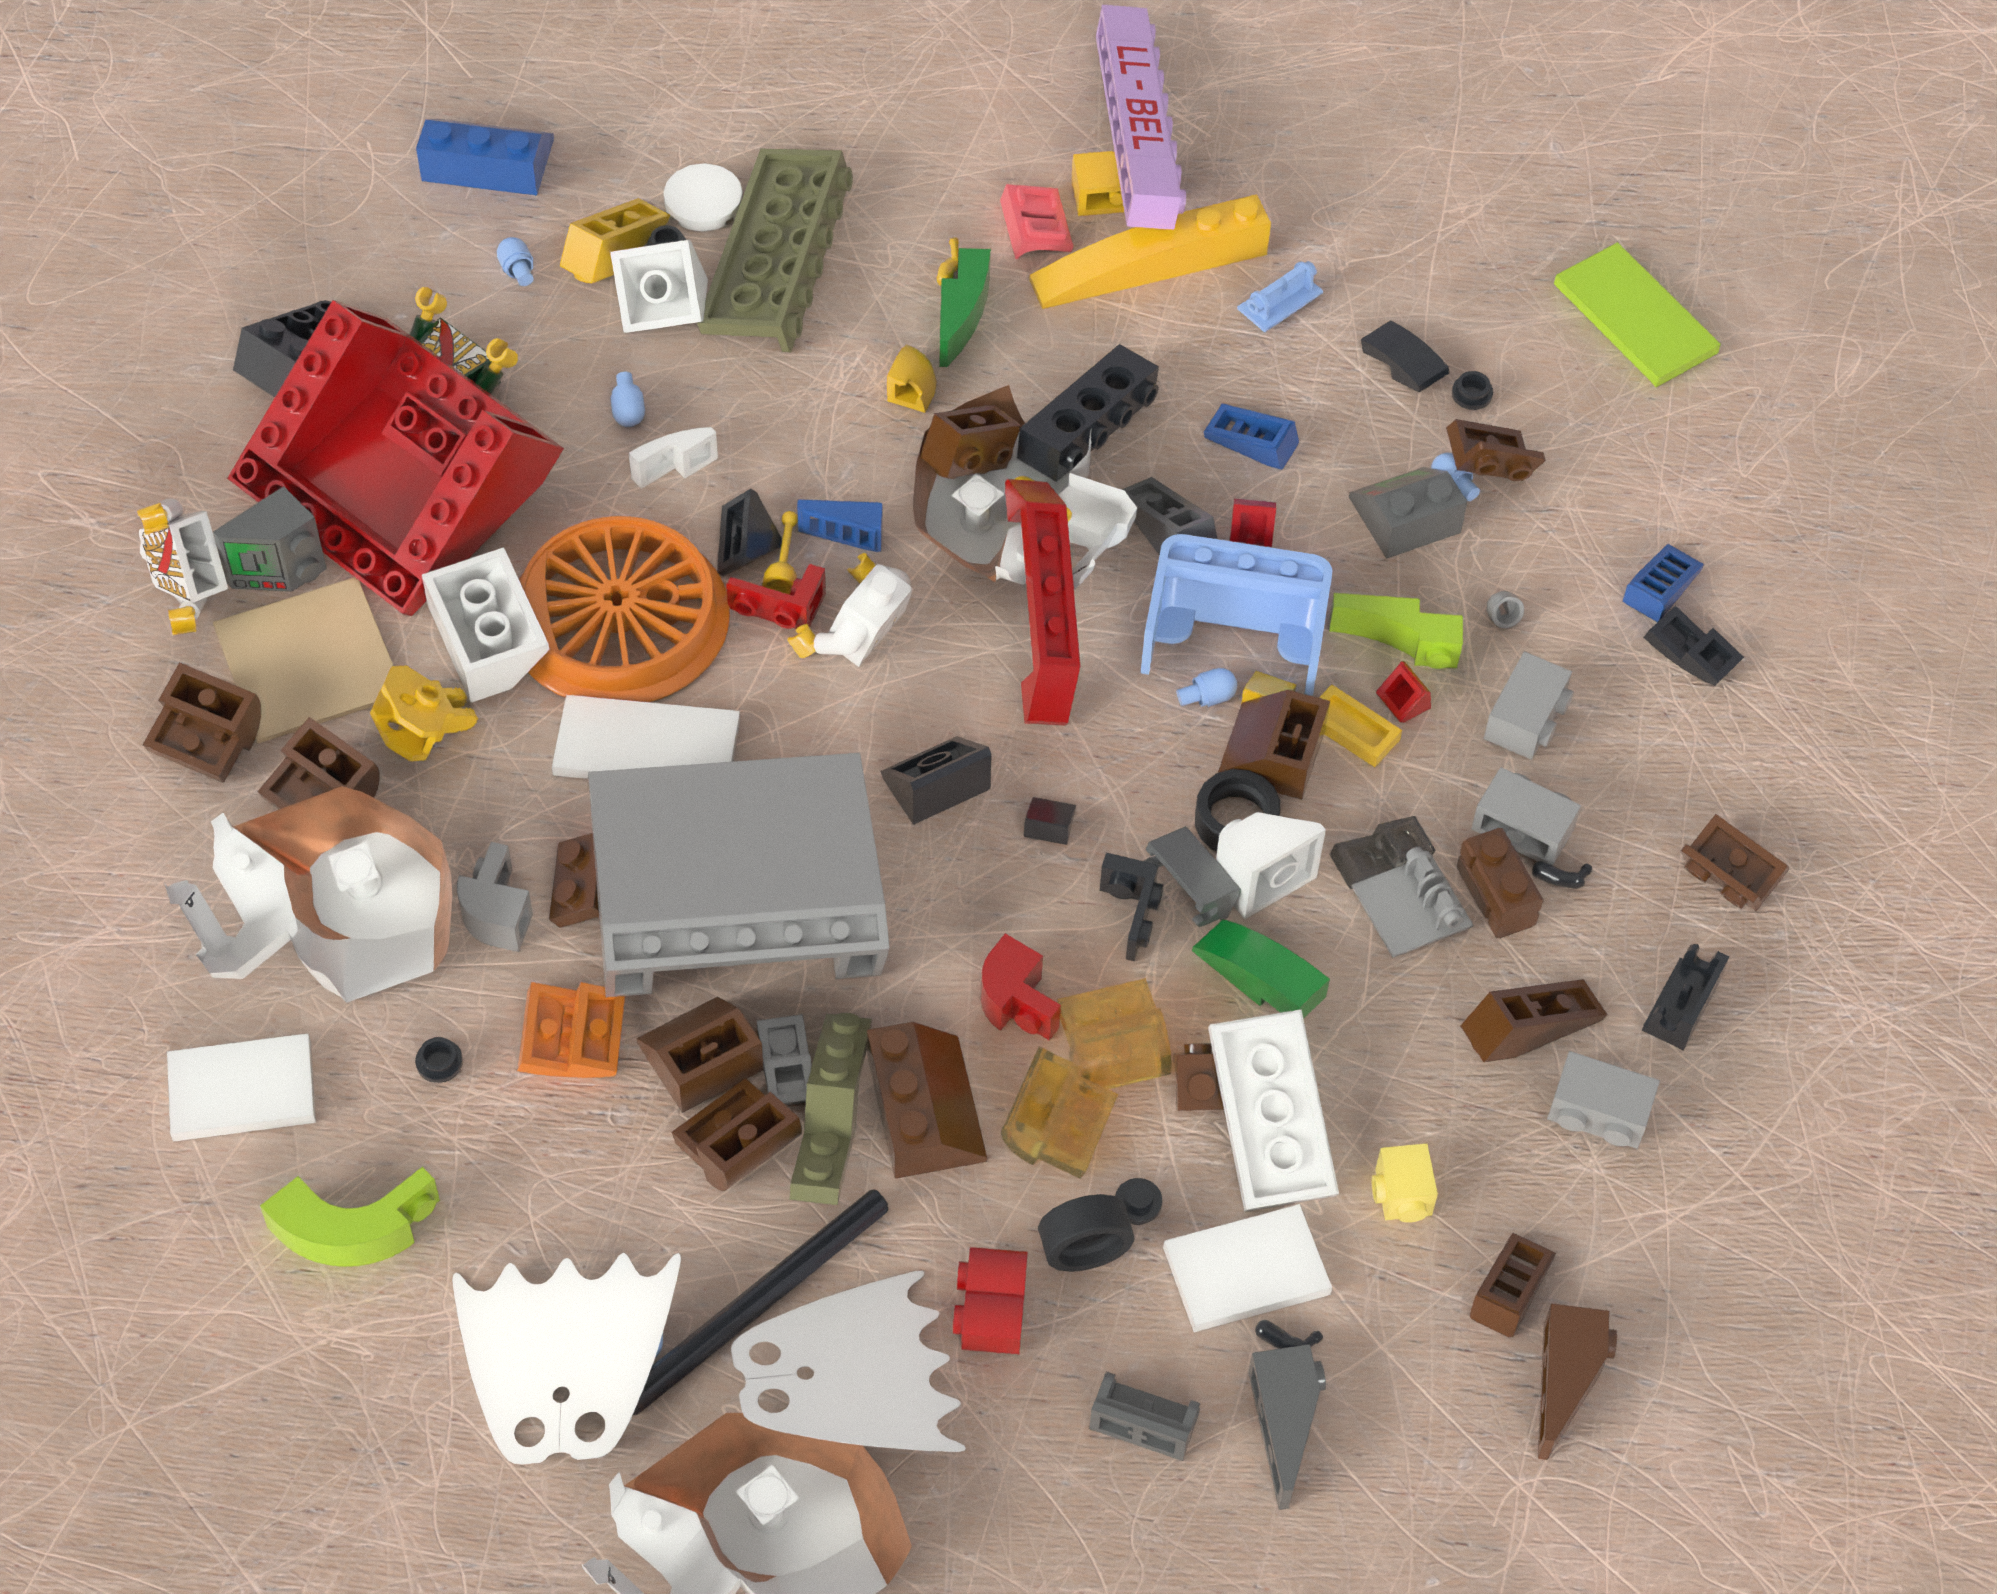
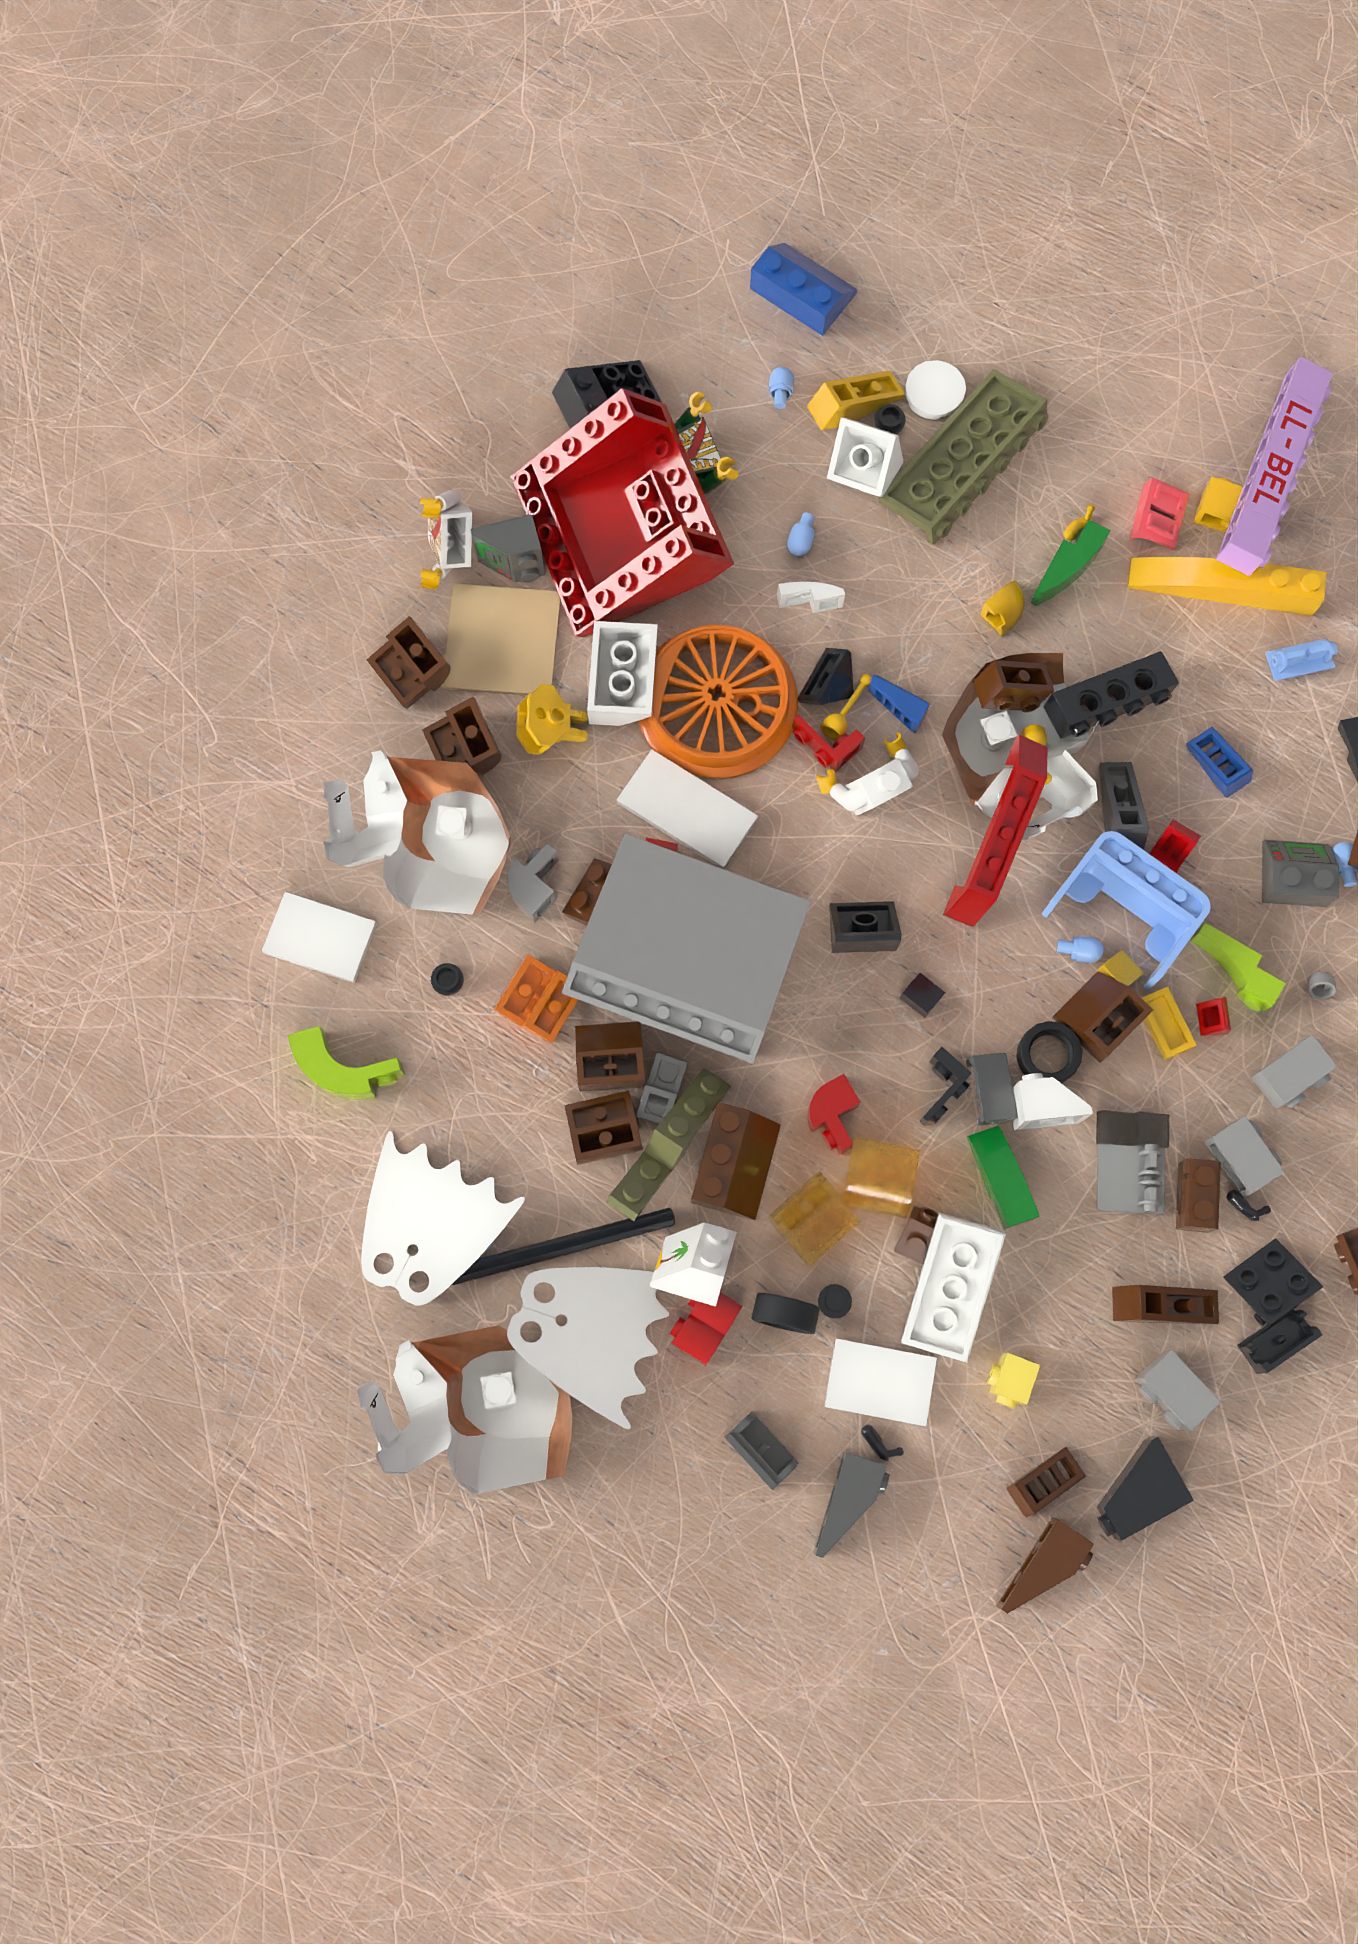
camera: 30 degrees right, 20 degrees up
(941, 1223) = (694, 1262): none -> white slope
(1633, 1232) = (1143, 1492): none -> black slope
(1641, 939) = (1272, 1282): none -> black hinge

